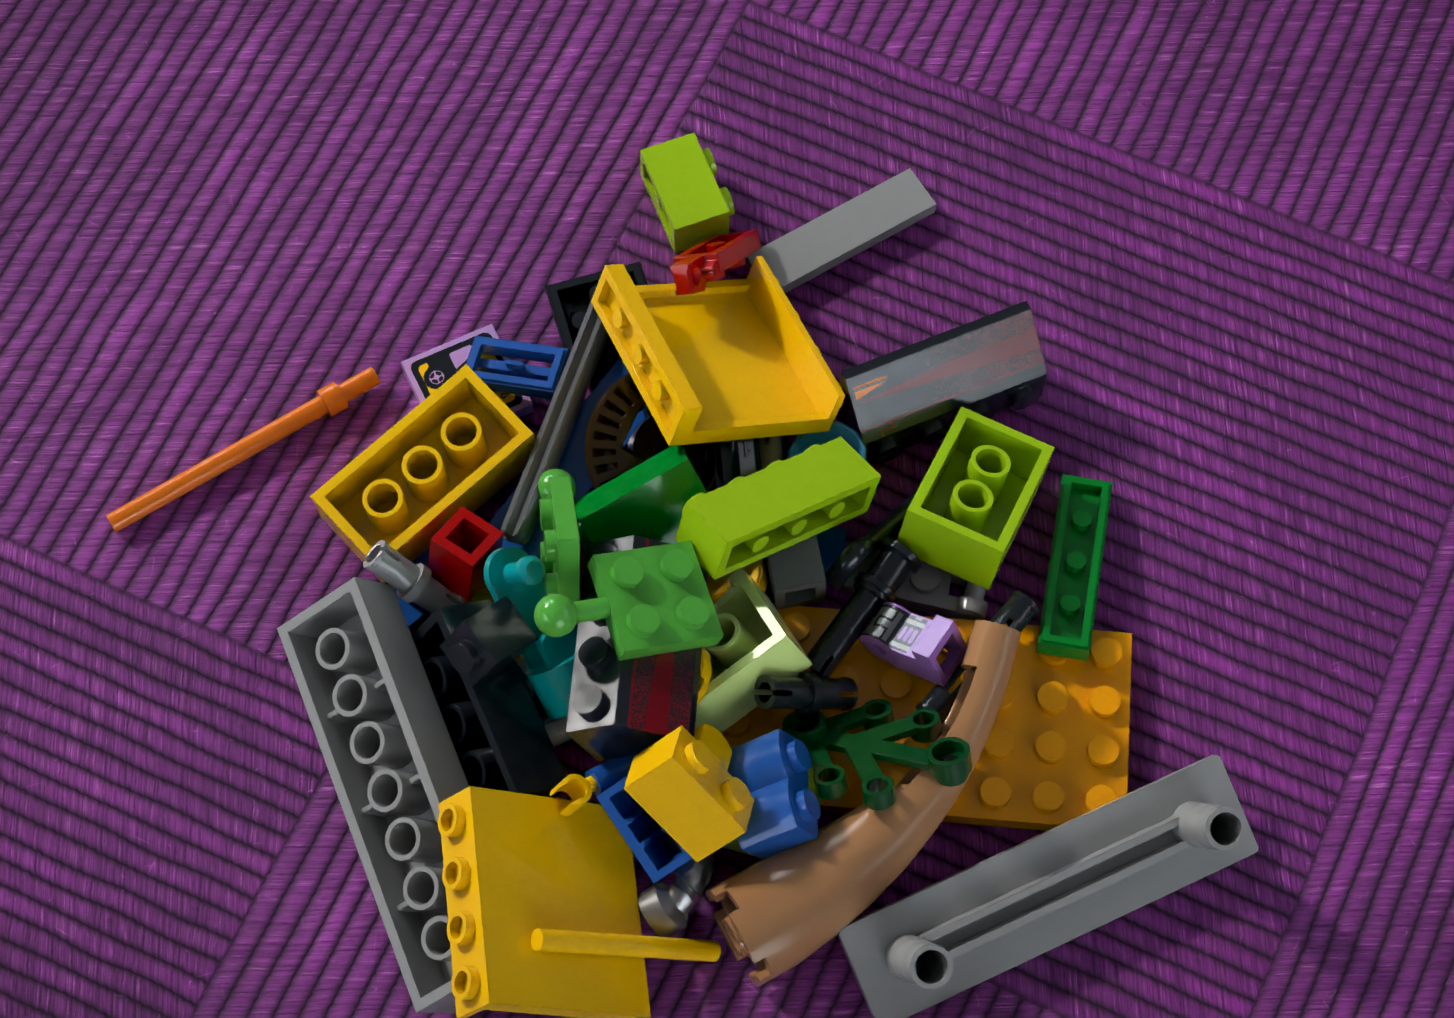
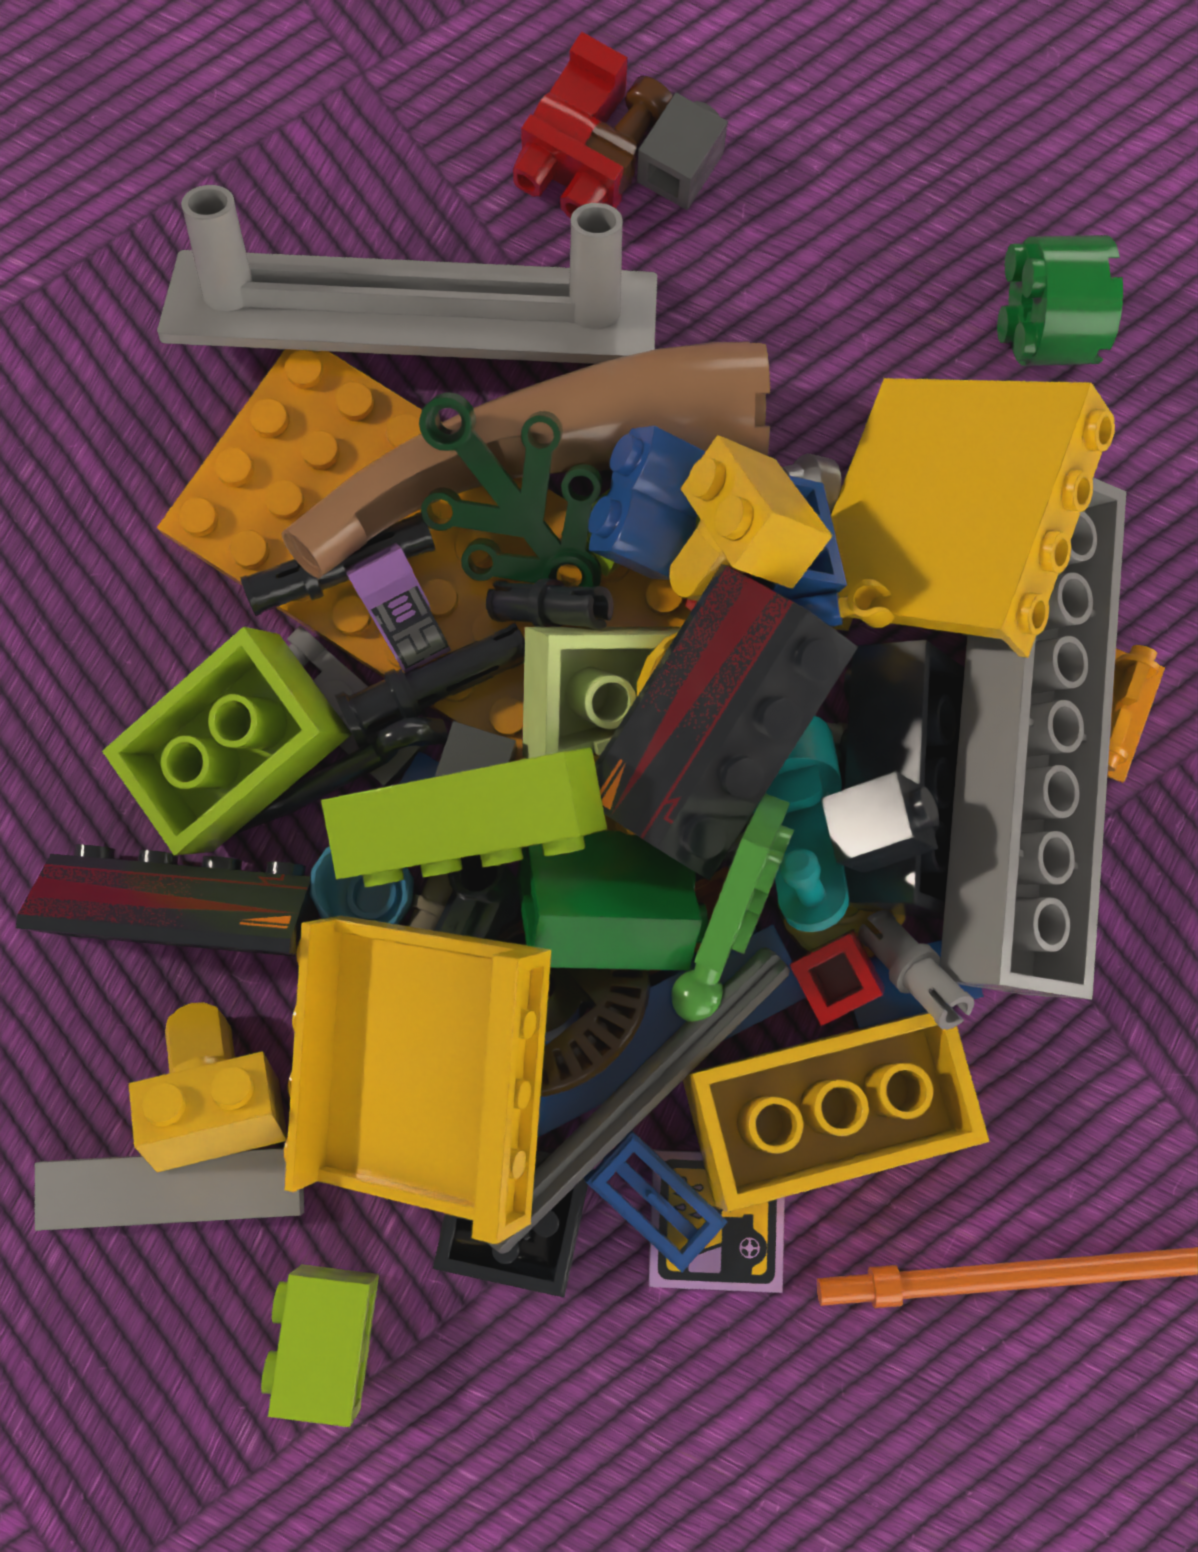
camera: 150 degrees left, 15 degrees up
(341, 875) = (1134, 691): none -> light orange hinge
(624, 945) = (888, 438): yellow bar -> none
(649, 599) = (686, 745): bright green plate -> none
(711, 258) = (349, 1213): red hinge -> none
(848, 288) = (208, 1099): none -> yellow brick
(1074, 567) = (167, 626): green tile -> none

